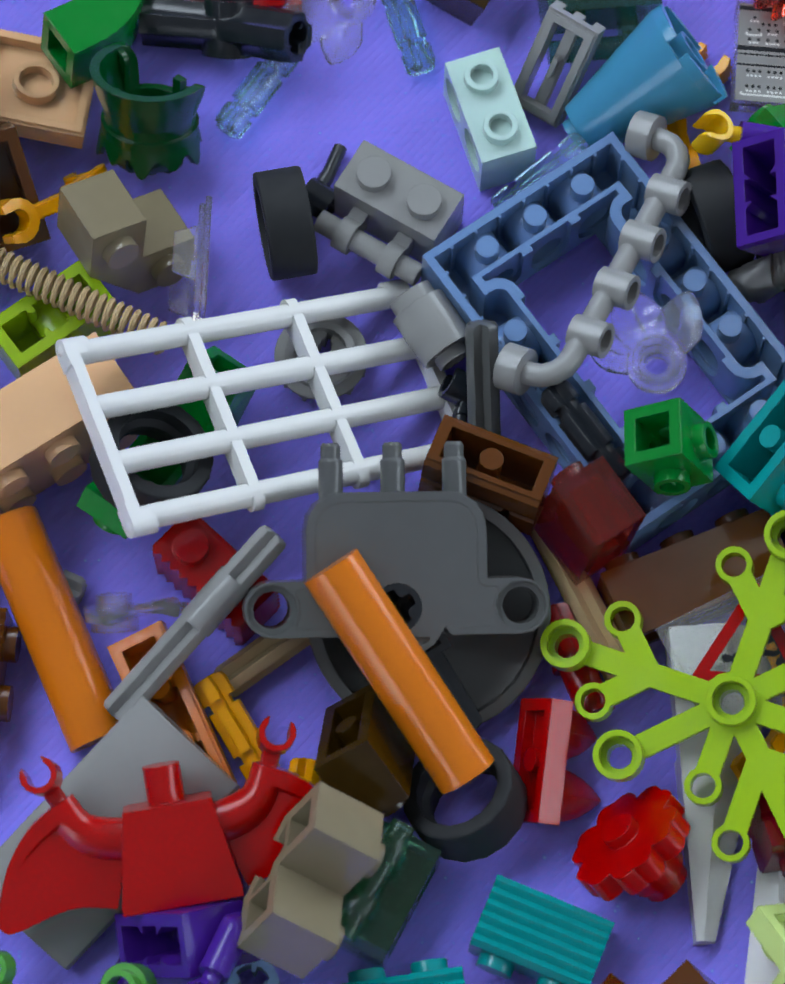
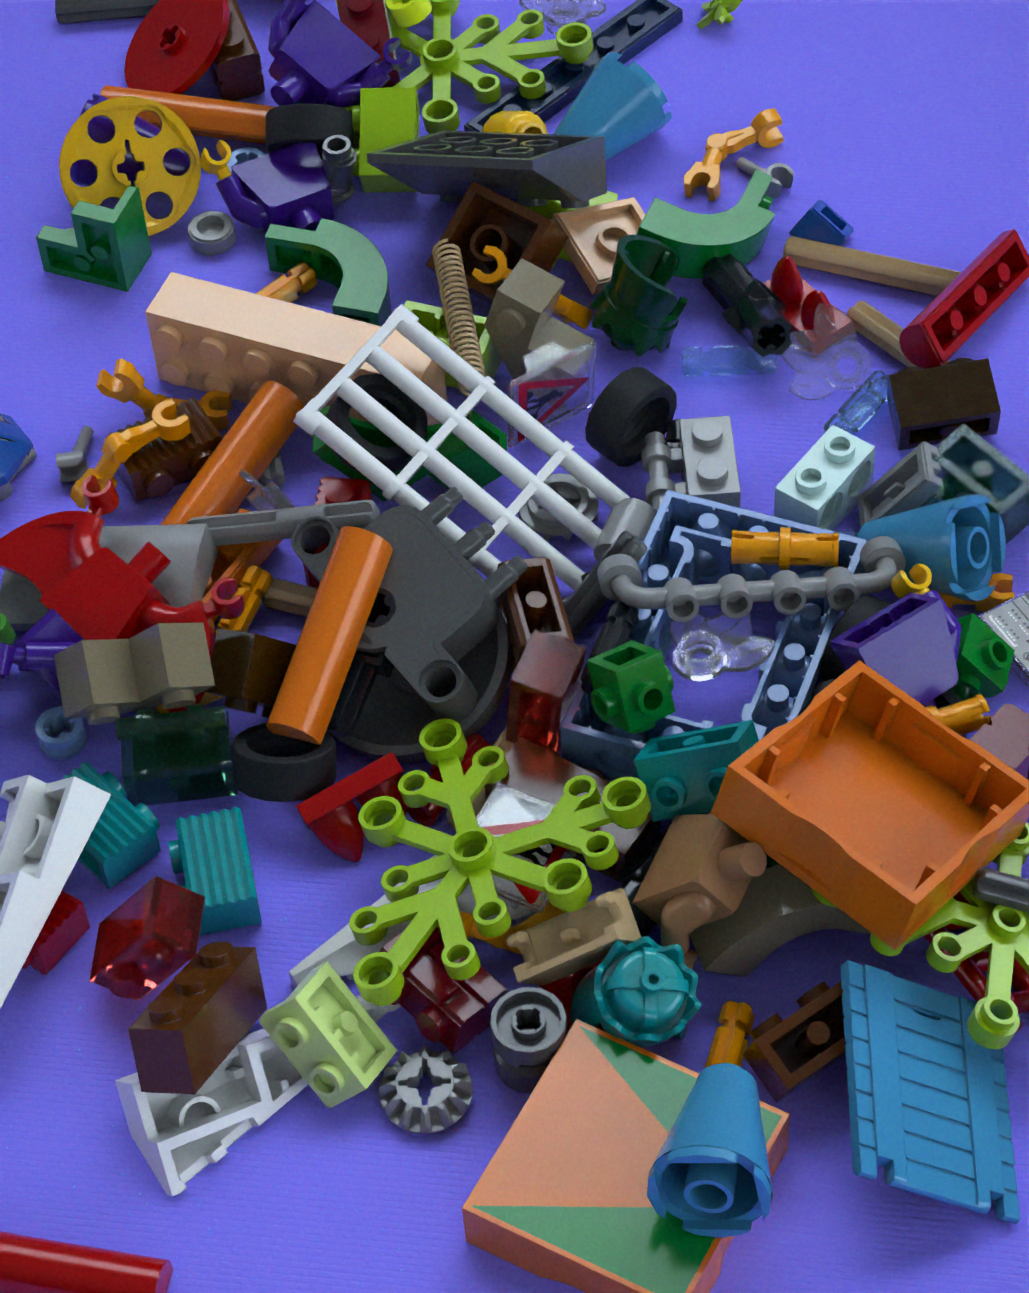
camera: 60 degrees right, 20 degrees down
(583, 207) = (784, 548): none -> light orange pin
(635, 847) = (324, 886): red plant -> none

